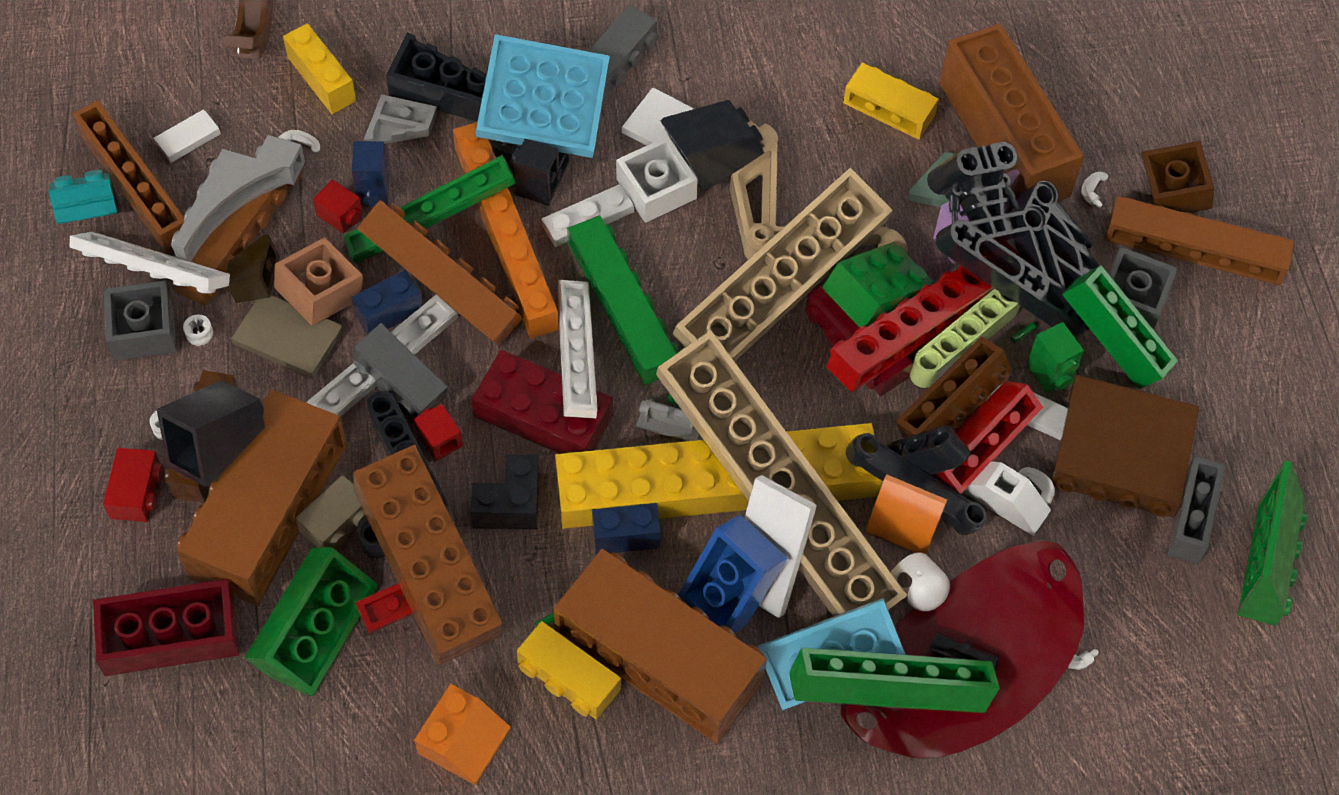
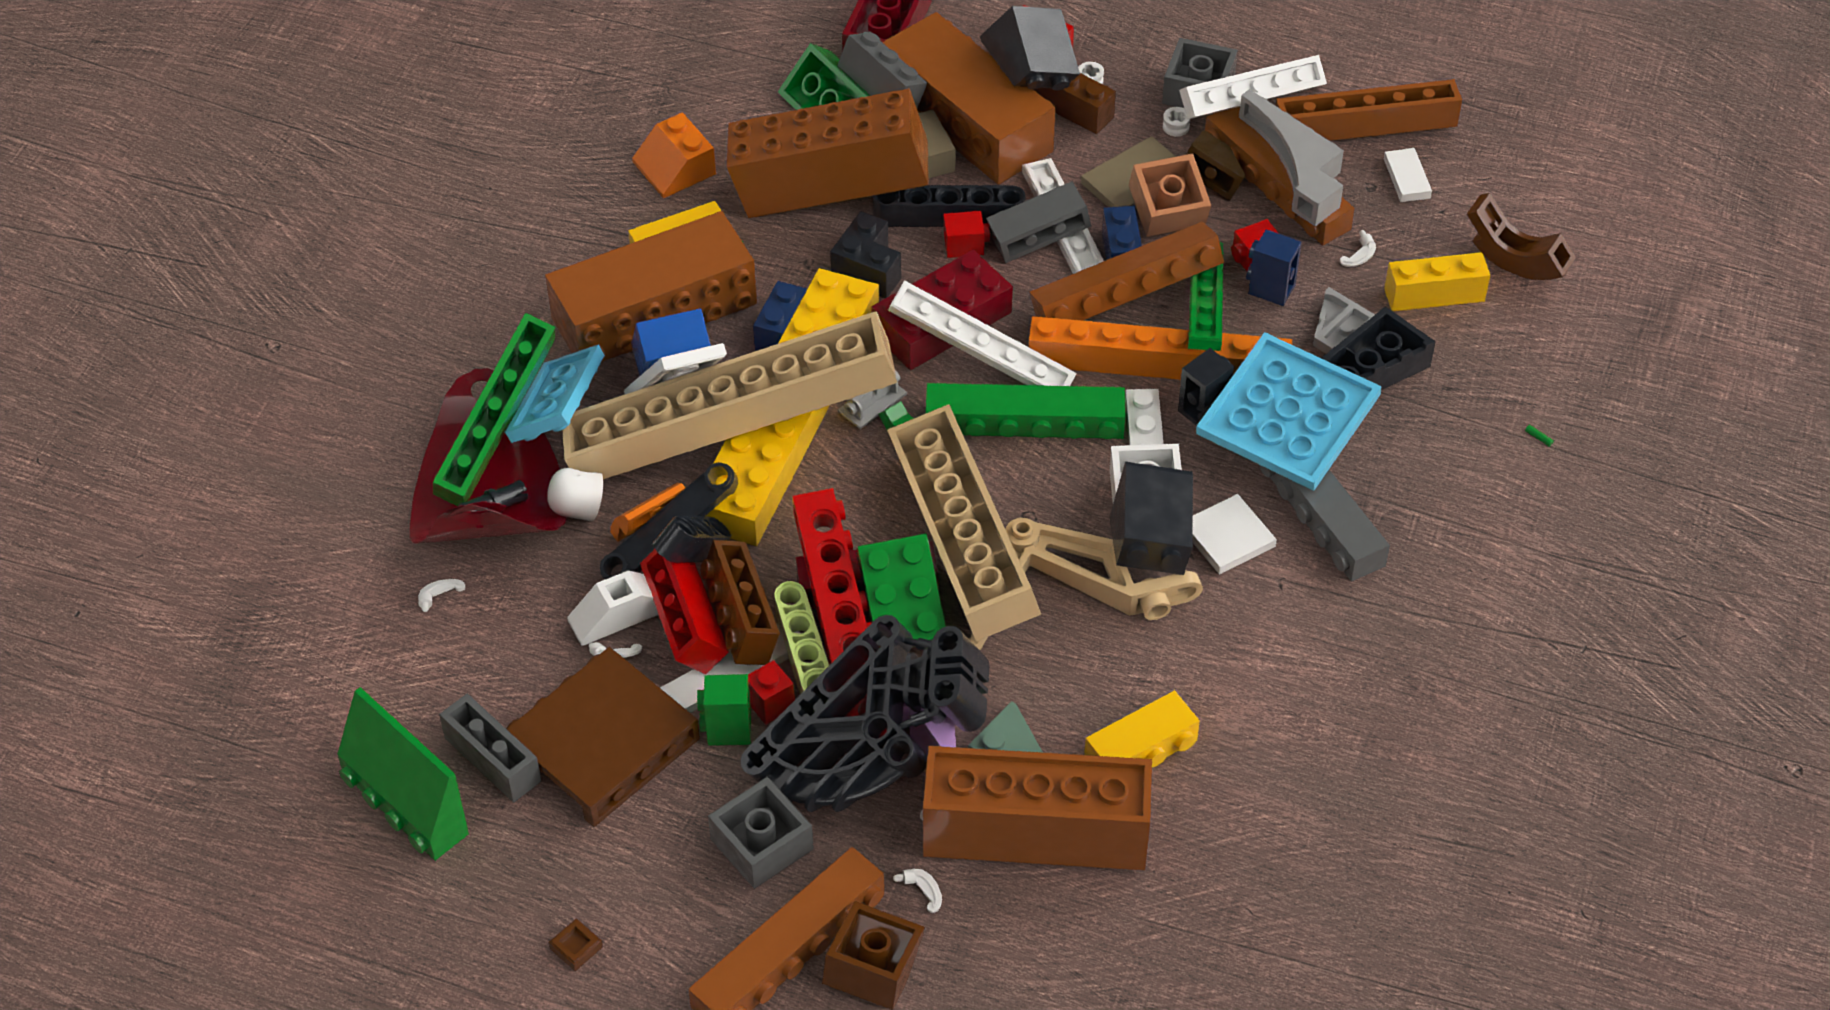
camera: 120 degrees right, 10 degrees down
(83, 196) = (1362, 69): teal brick -> none
(284, 566) = (878, 67): none -> dark grey brick
(1015, 343) = (770, 691): none -> red brick
(1120, 327) = (716, 770): green brick -> none
(1292, 377) = (575, 944): none -> reddish brown tile

